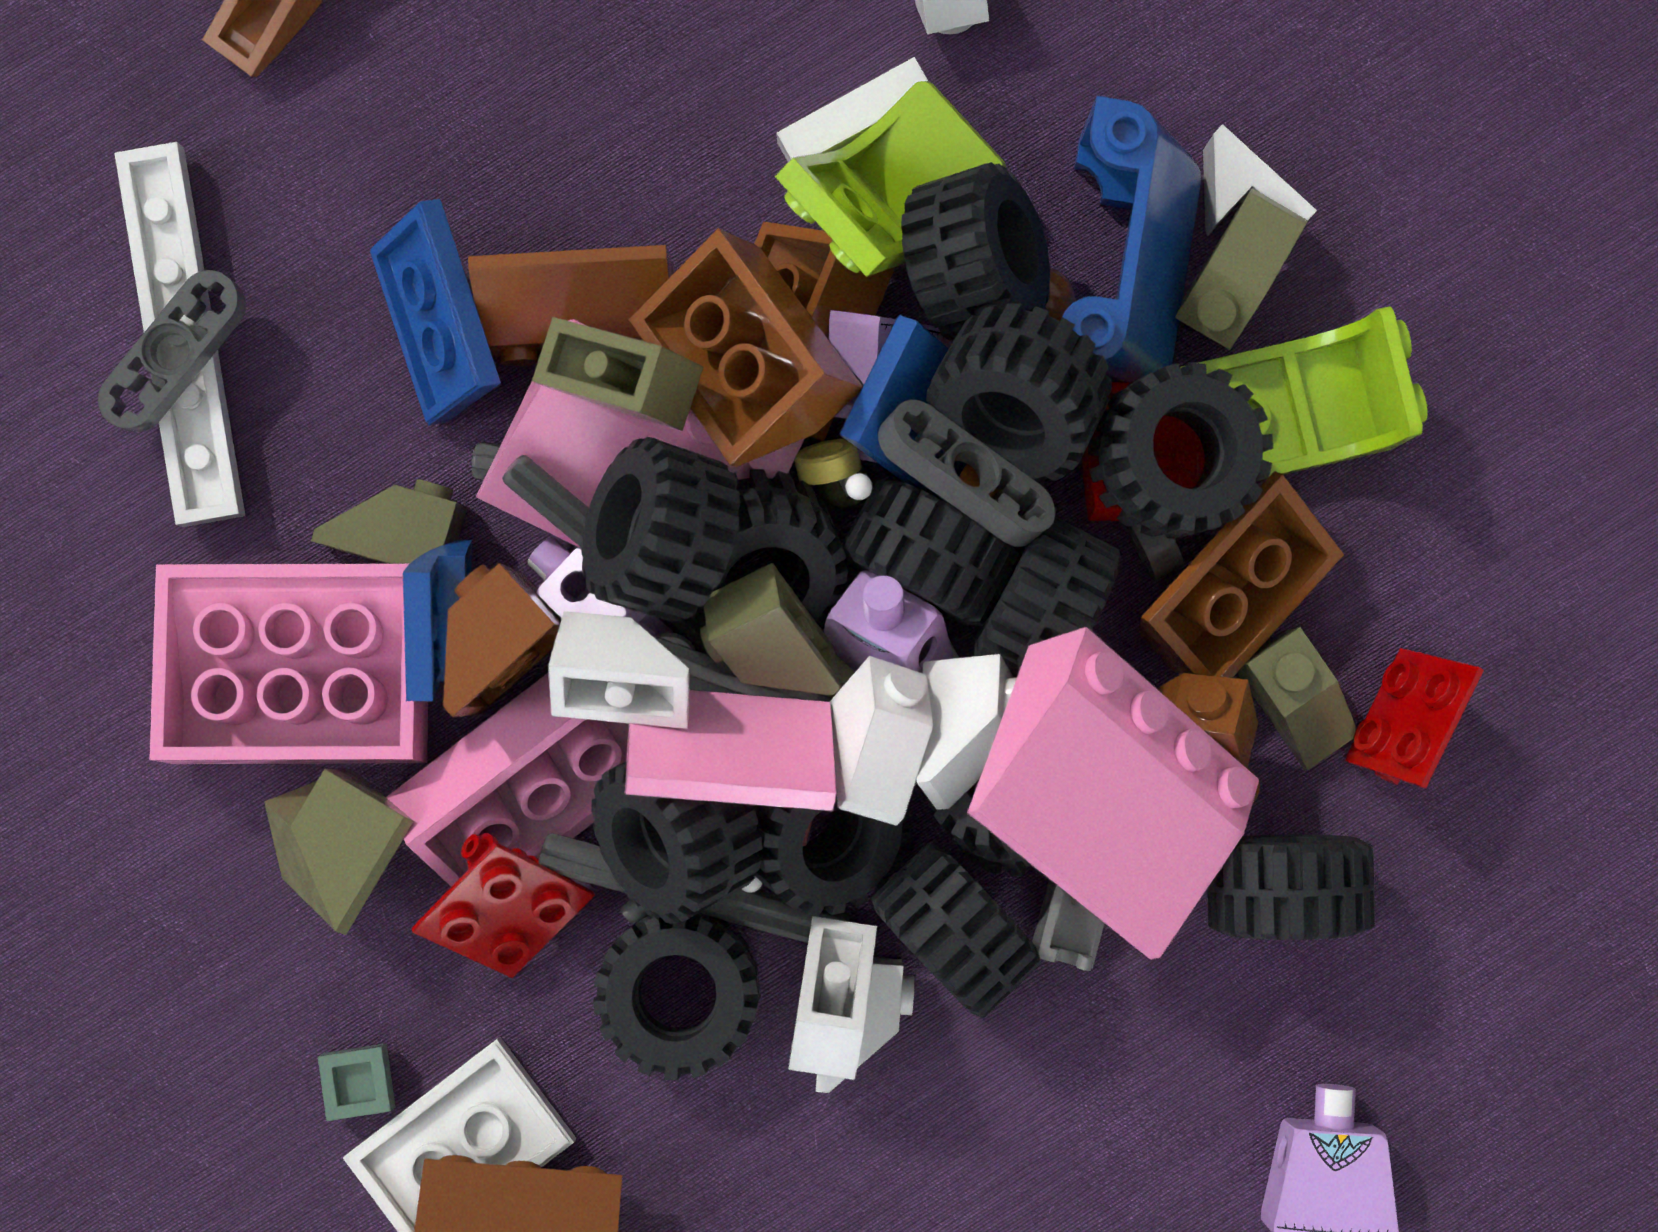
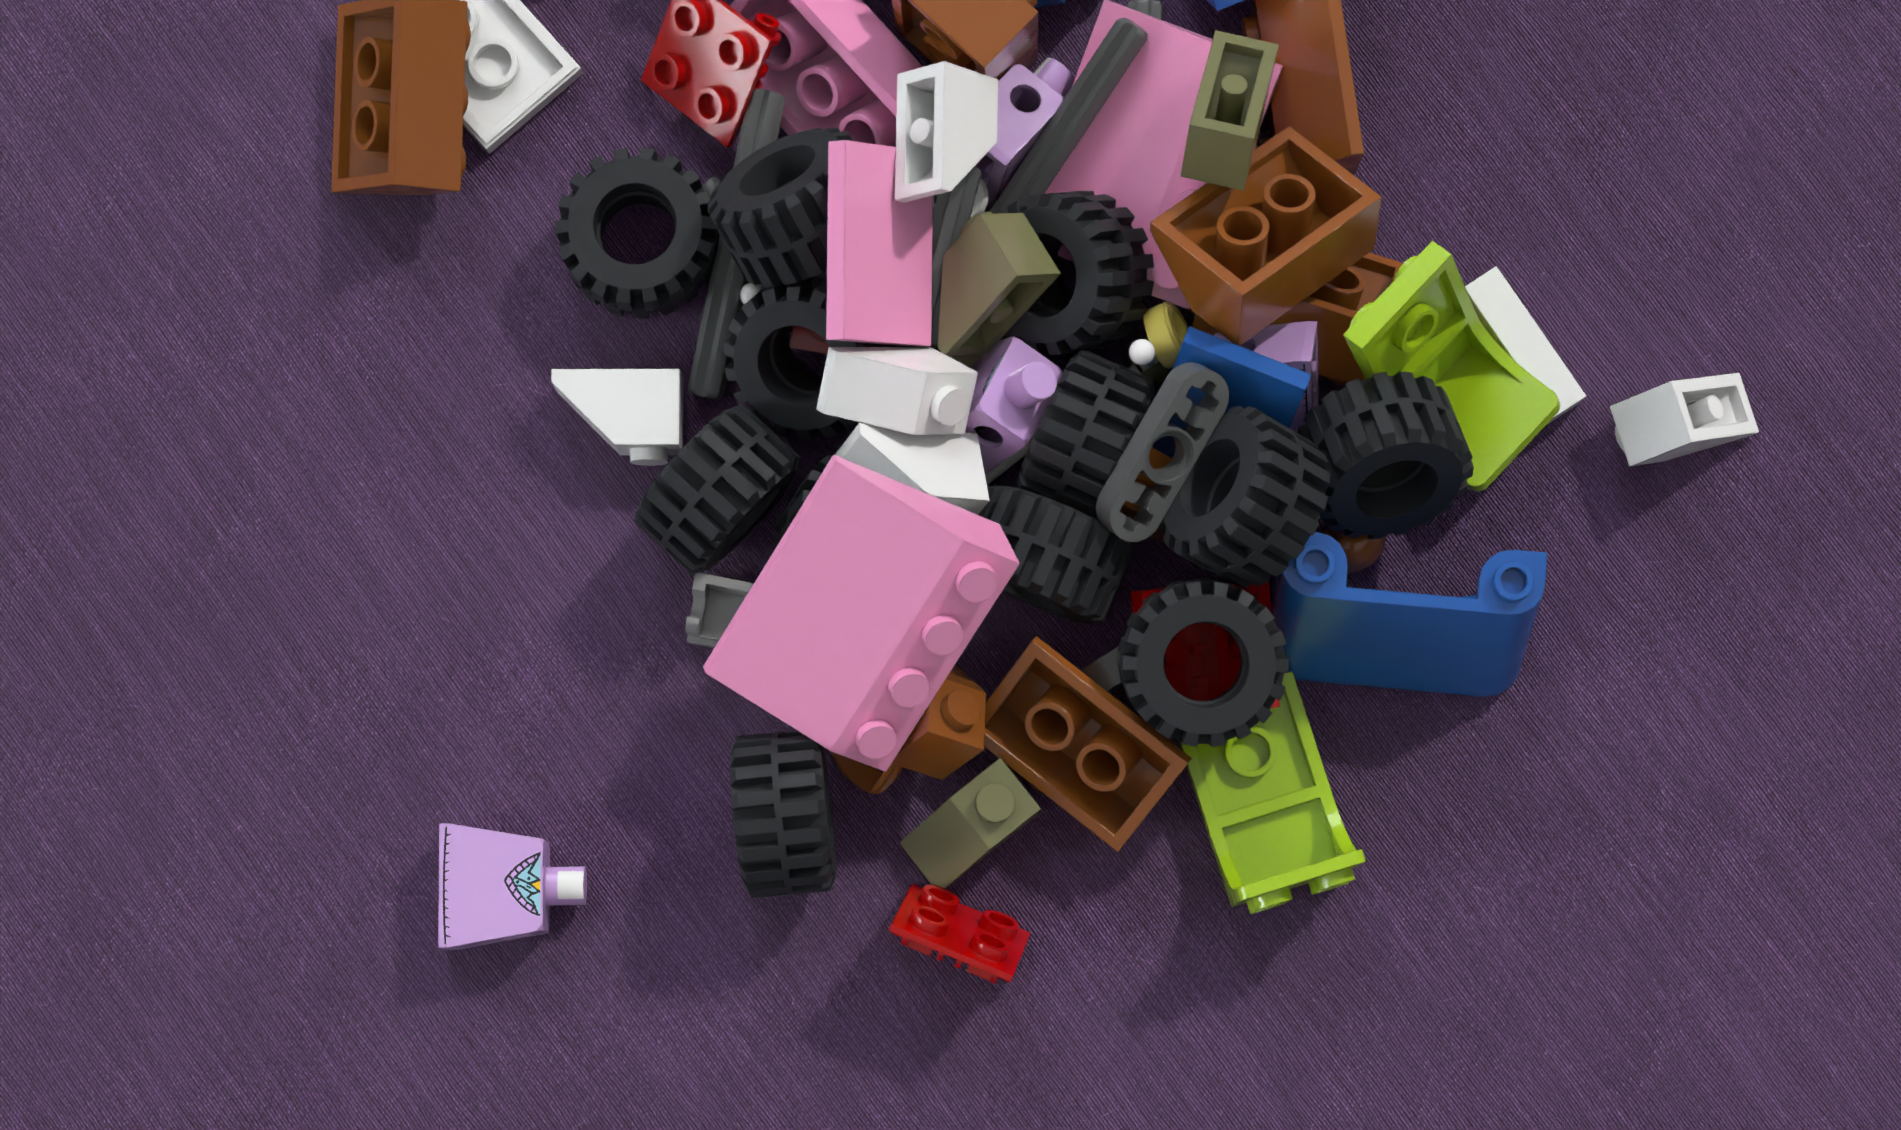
camera: 85 degrees right, 5 degrees down
(660, 530) = (1083, 163): black tyre -> none
(833, 998) = (644, 371): white slope -> none
(1231, 174) = (1493, 728): white slope -> none
(1241, 269) = (1396, 729): olive slope -> none

